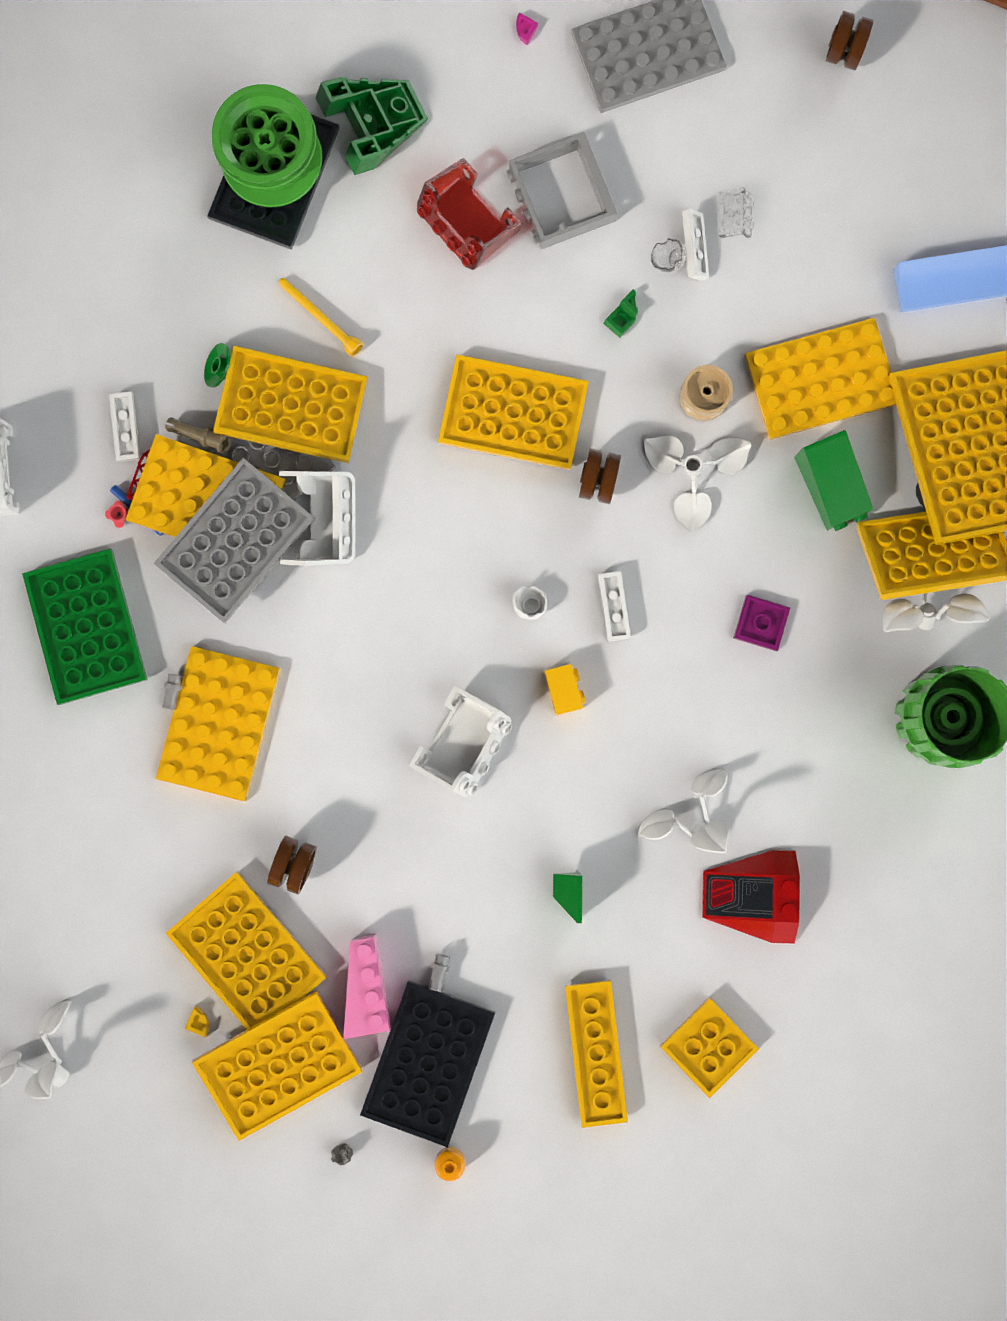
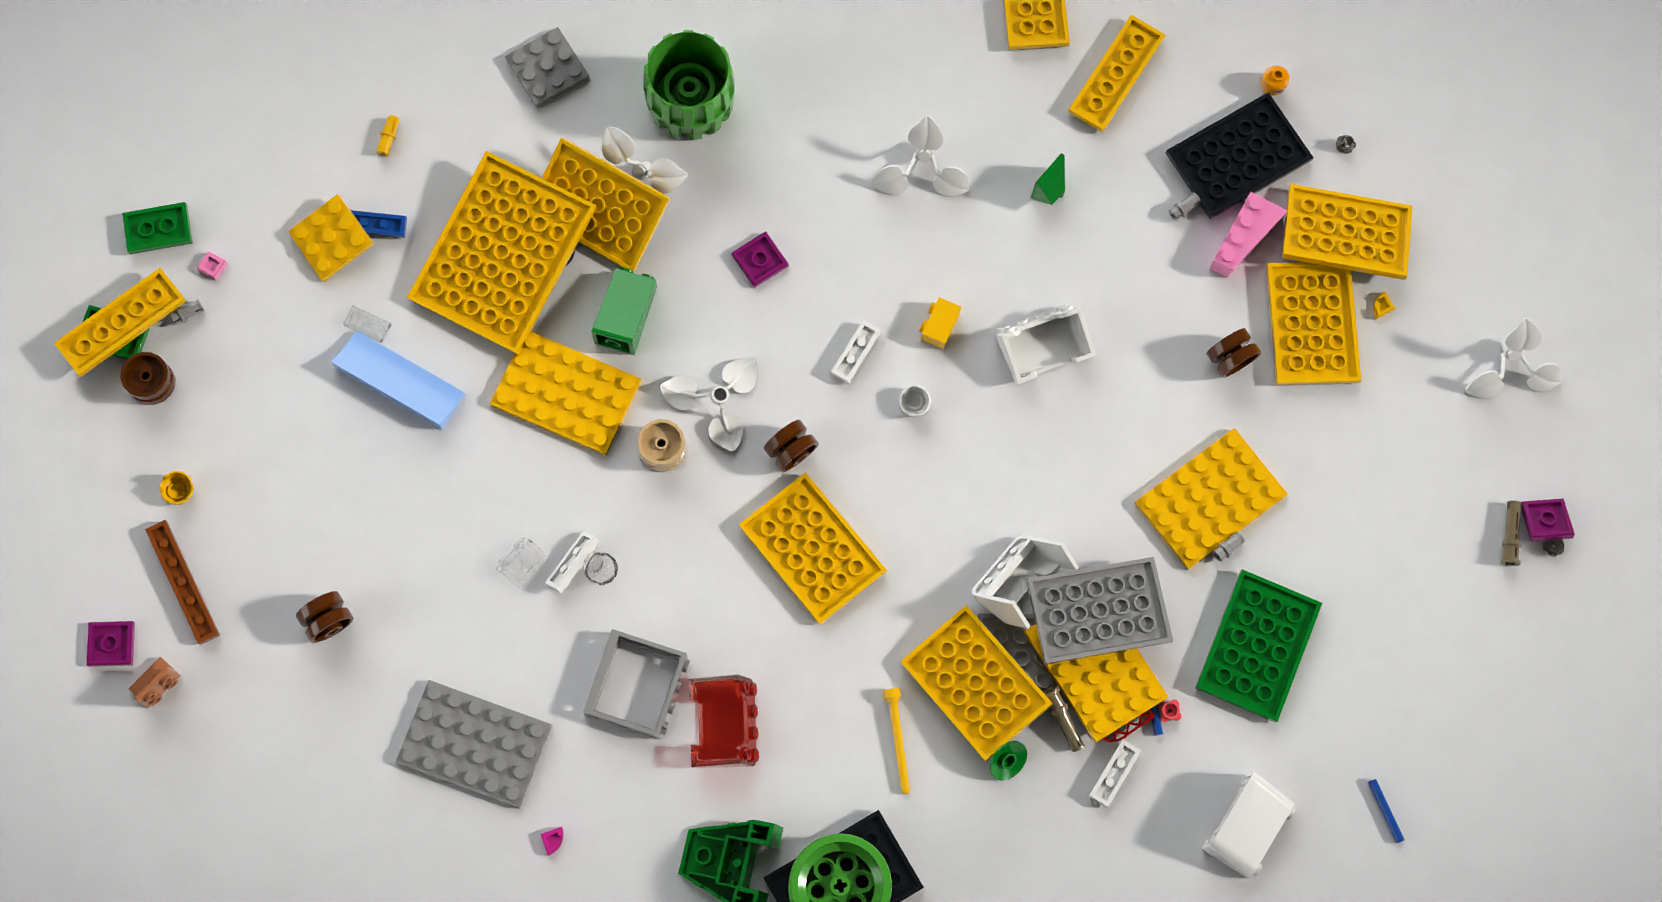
camera: 145 degrees left, 10 degrees down
(623, 316) = (669, 555): green slope -> none
(756, 896) = (920, 85): red wedge -> none

